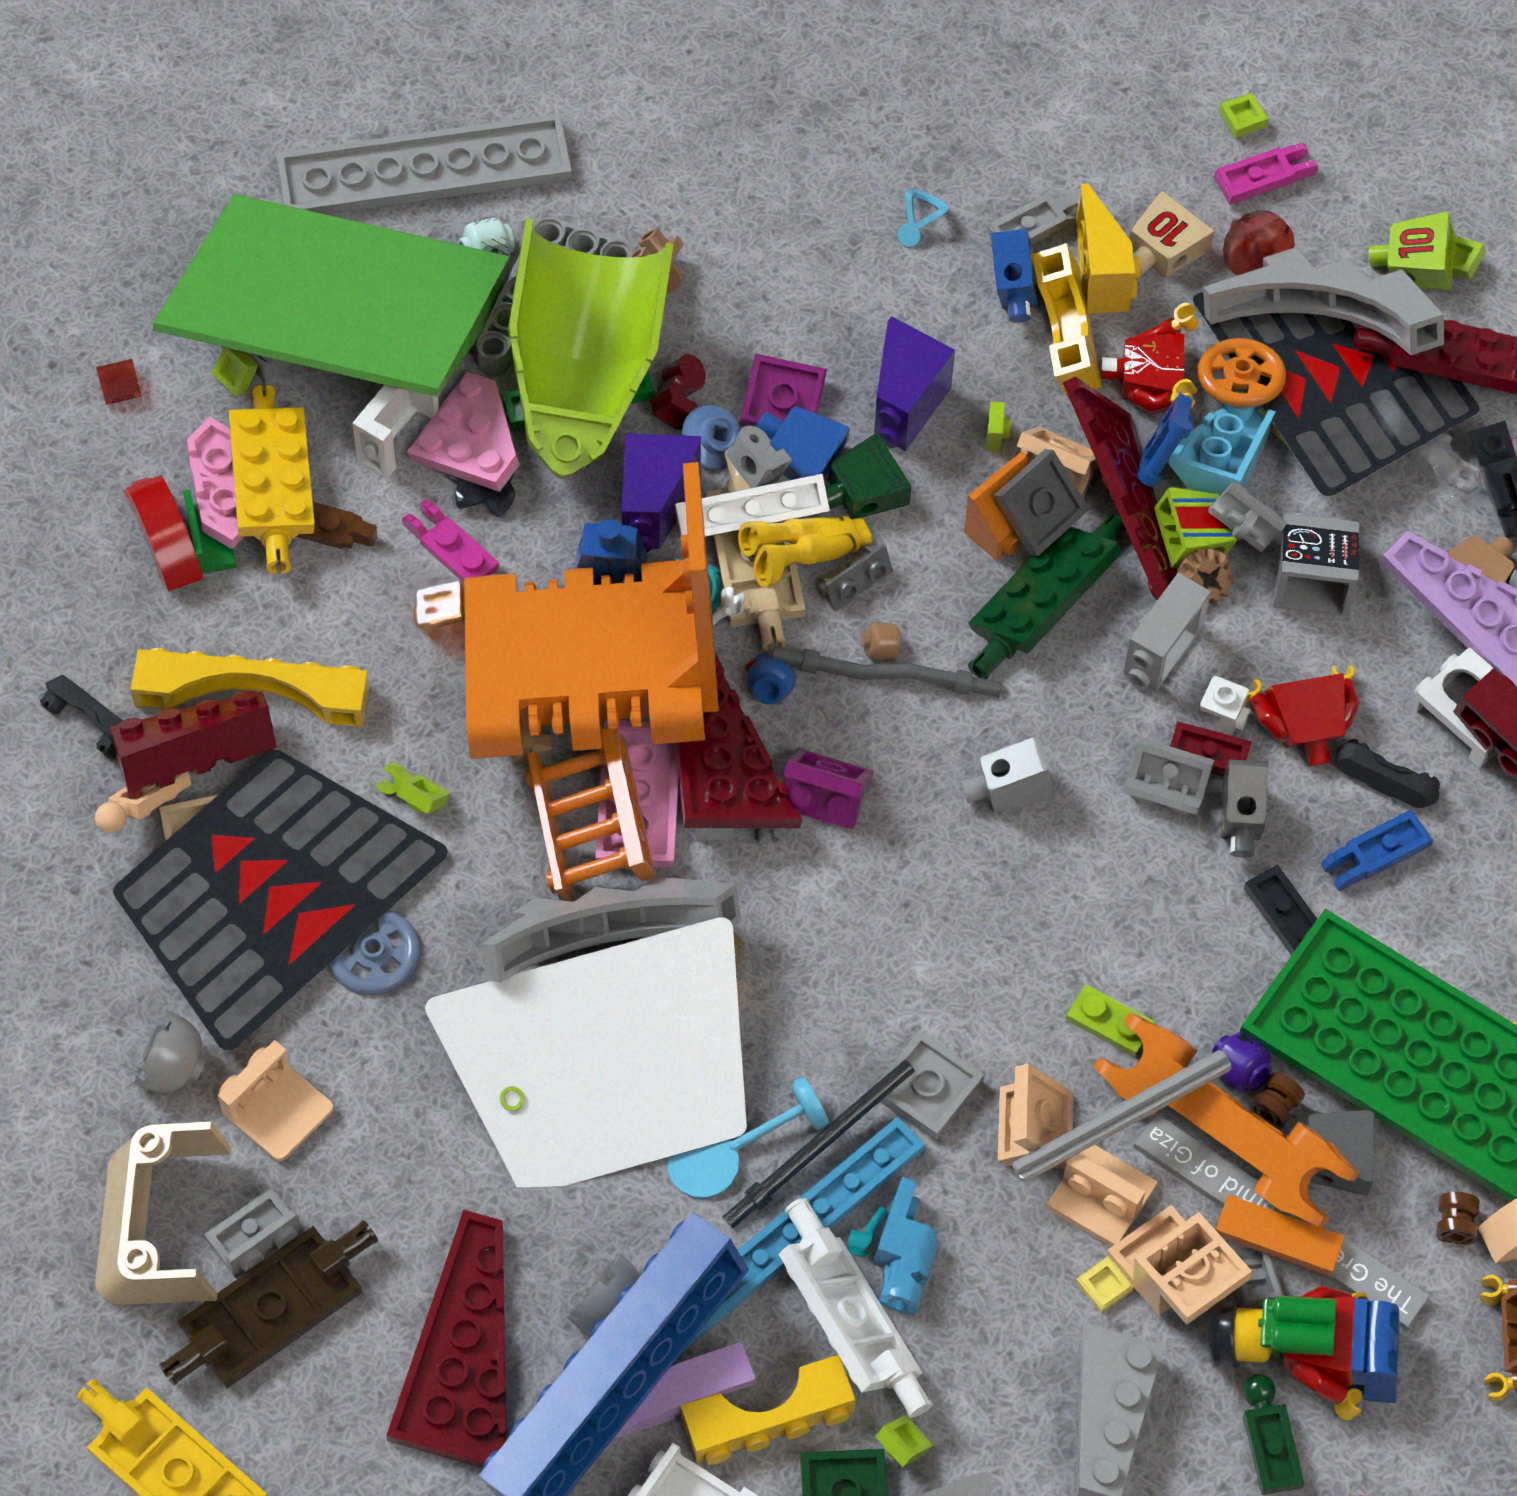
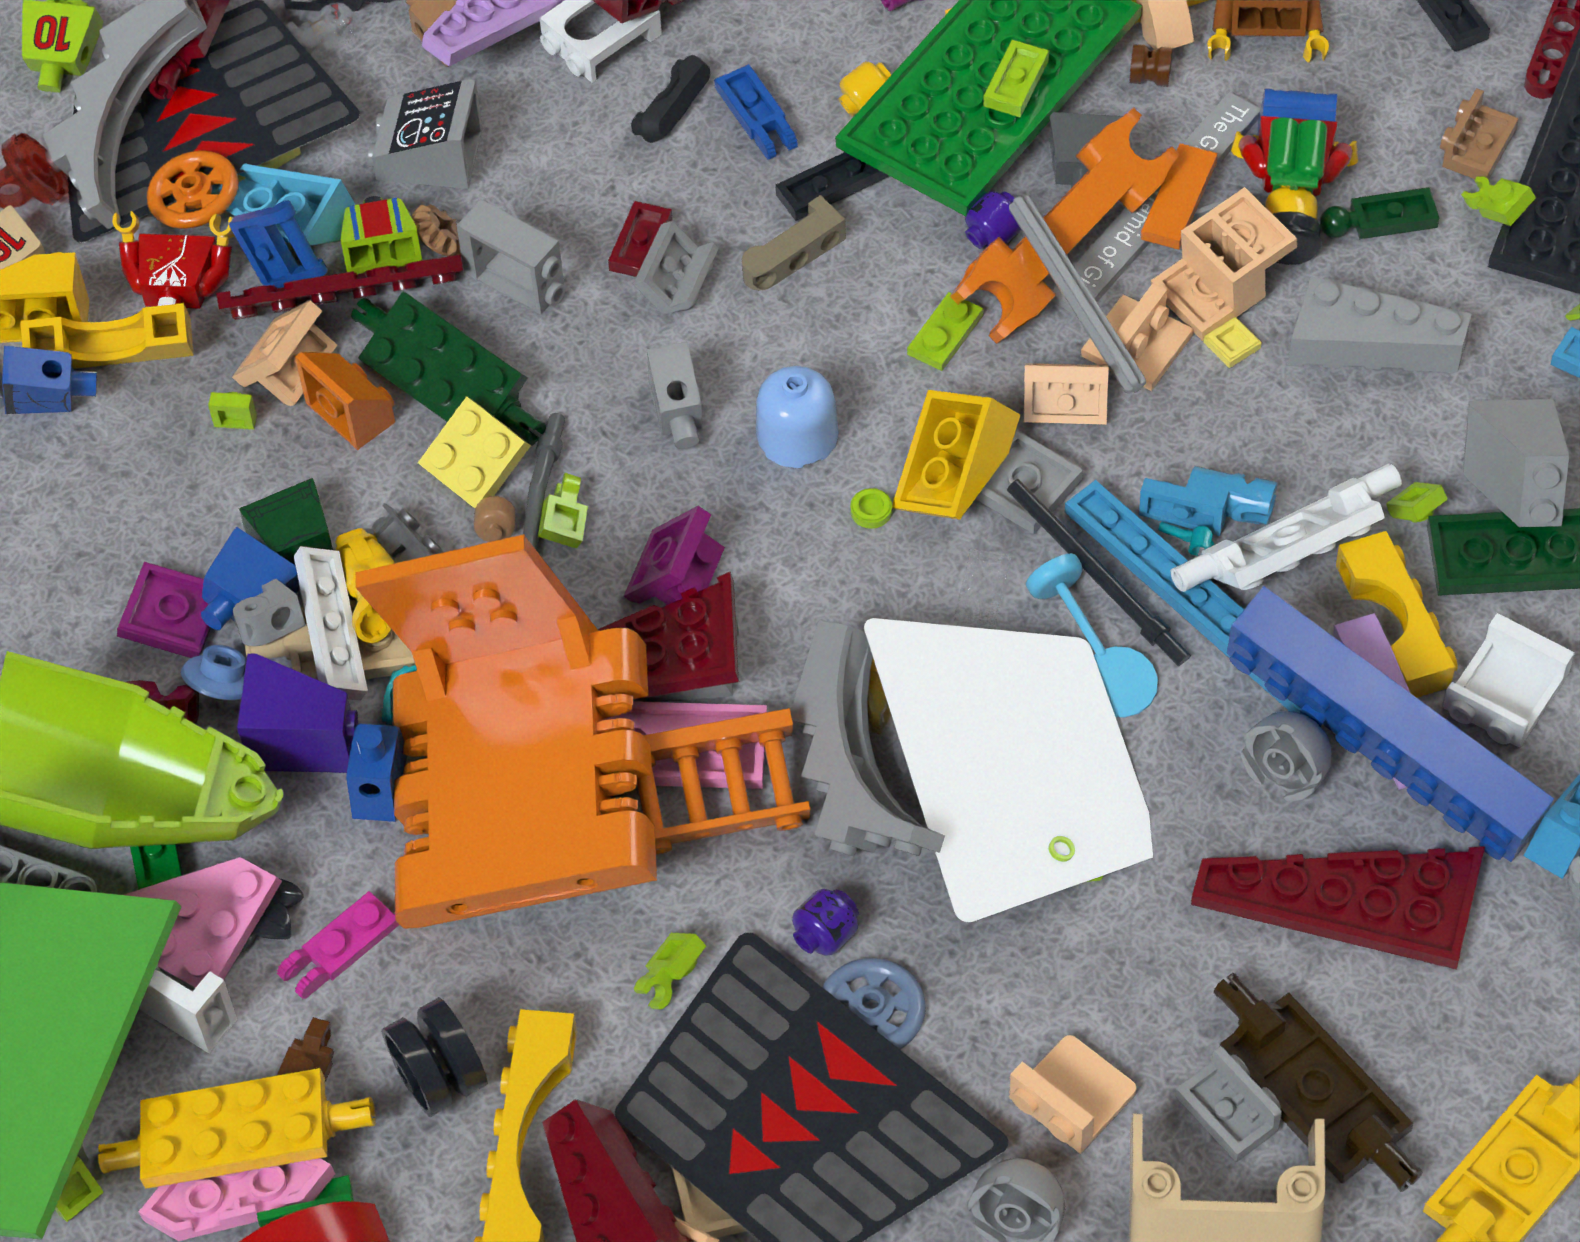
camera: 85 degrees left, 5 degrees down
(323, 608) = (434, 1057): none -> black wheel
(439, 607) = (436, 939): clear orange bracket -> none
(449, 908) = (825, 922): none -> dark purple head
(880, 694) = (562, 516): none -> lime plate
(899, 954) = (871, 508): none -> lime tile
(911, 383) = (176, 480): dark purple slope -> none
(948, 617) = (474, 453): none -> light yellow plate
(948, 1016) = (954, 453): none -> yellow slope
(989, 881) = (796, 417): none -> light blue cylinder
(1041, 502) = (350, 351): dark grey plate -> none
(1203, 884) = (794, 247): none -> dark tan leg
(1228, 703) = (597, 213): white bracket -> none
(1244, 780) = (712, 203): torso -> none
(1247, 516) = (378, 181): light grey hips -> none
(1278, 1099) = (1043, 195): reddish brown wheel -> none
(1307, 711) = (602, 154): red torso -> none
(1399, 1068) = (1016, 78): none -> lime plate
(1410, 941) = (861, 85): none -> yellow head

